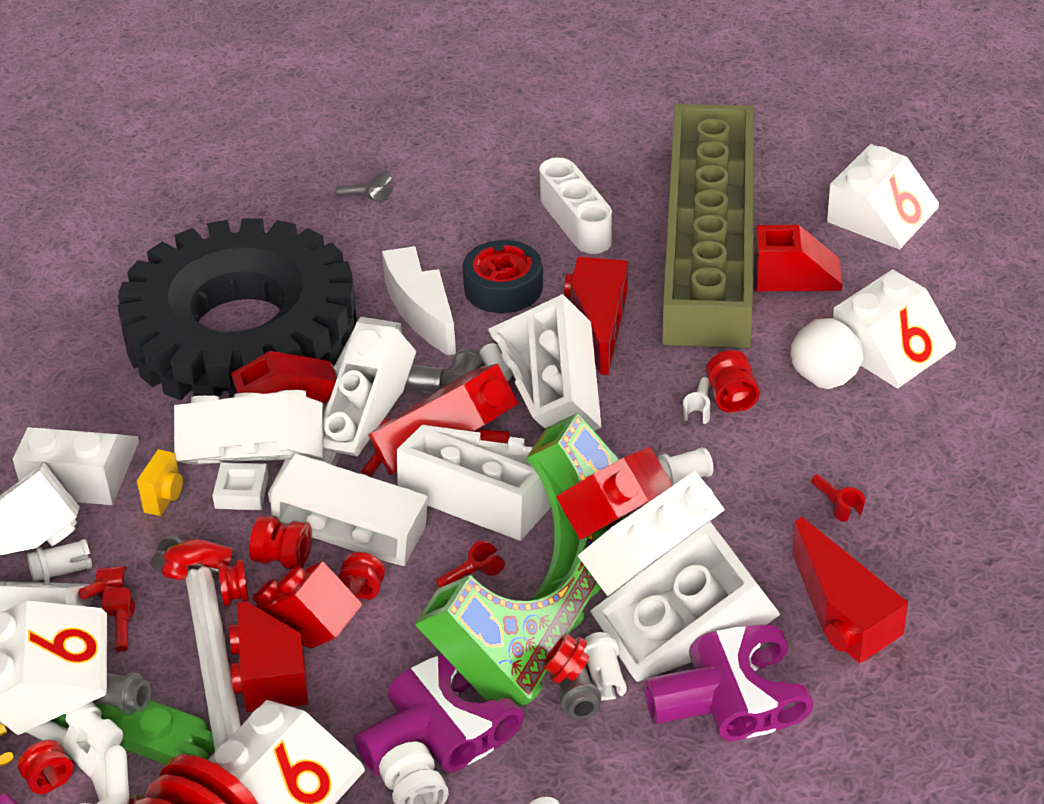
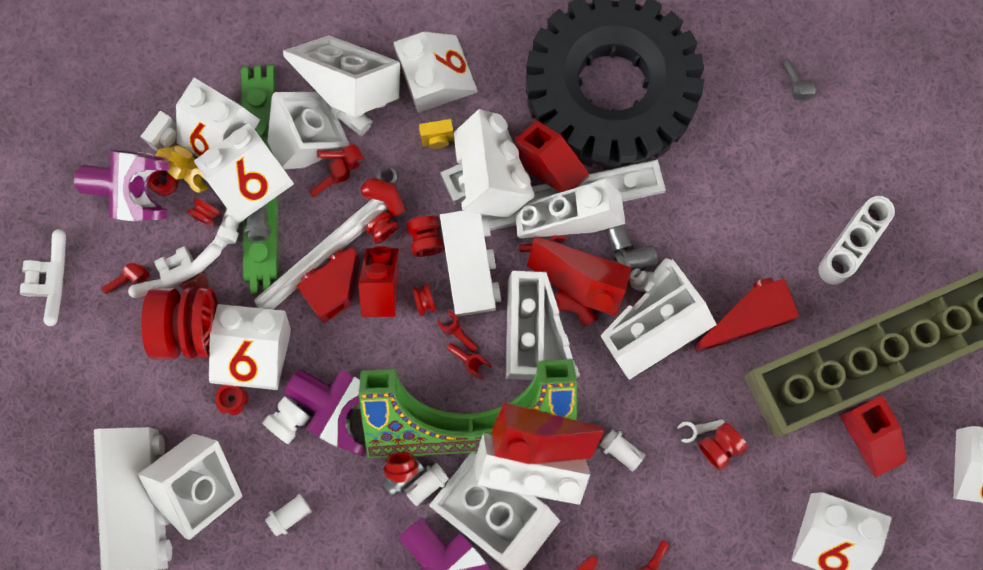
camera: 65 degrees right, 35 degrees up
(413, 570) = (458, 332): none -> red hand
(419, 298) = (695, 188): white slope -> none
(503, 276) = (740, 244): black wheel -> none
(826, 353) = (786, 500): white hair -> none

